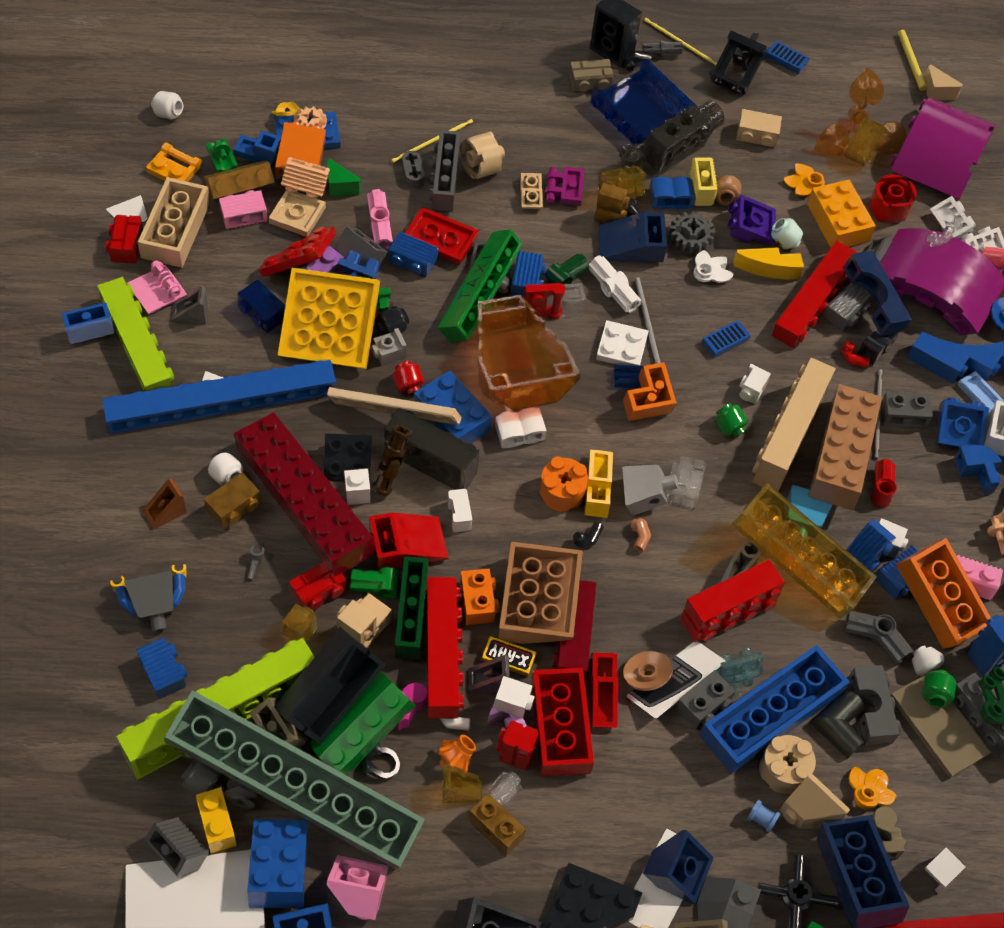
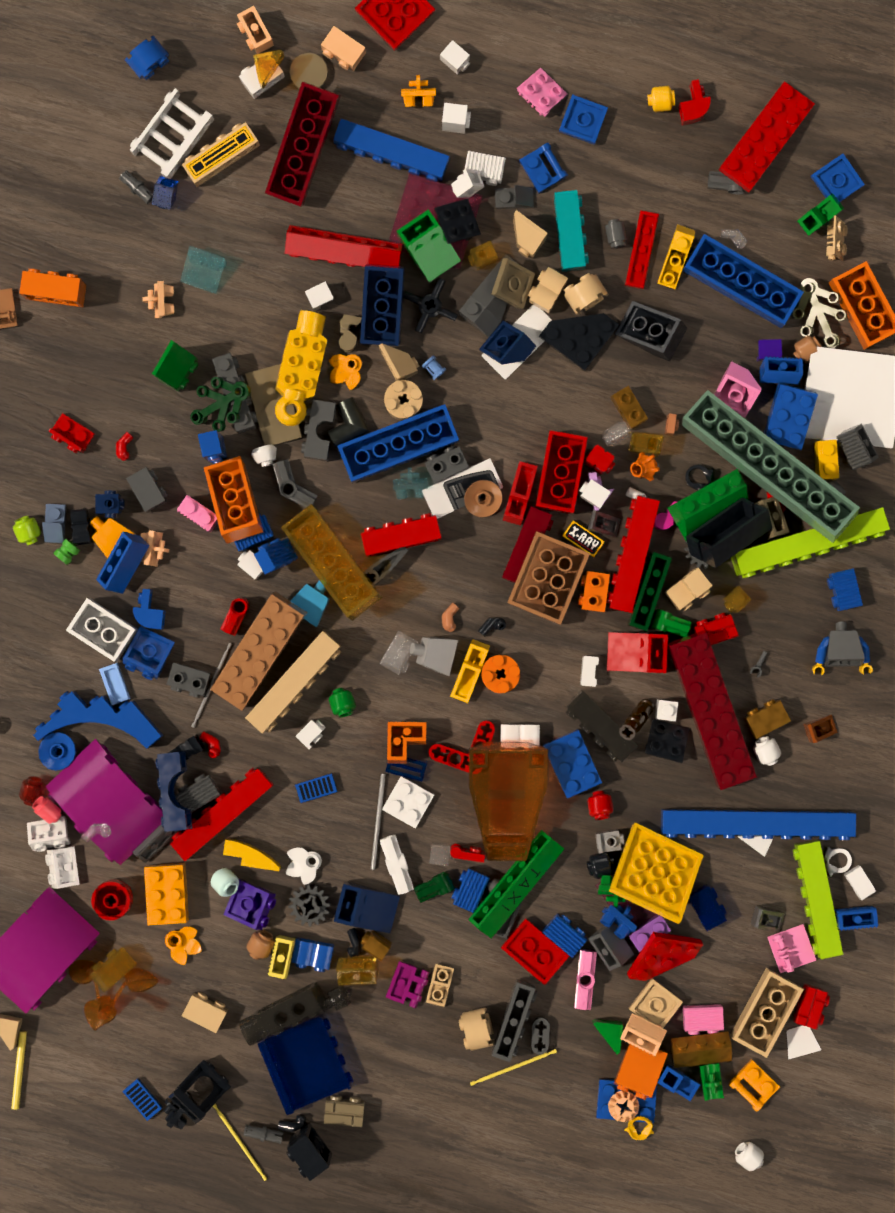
camera: 160 degrees left, 30 degrees up
(88, 362) = (860, 882): none -> white piece
(124, 371) = (832, 869): none -> white piece
(391, 405) = (622, 772): tan tile -> none
(434, 818) = (671, 424): none -> nougat plate
(568, 401) = (443, 748): none -> red beam
(930, 771) = (300, 366): none -> yellow brick
(939, 688) = (267, 427): green head -> none

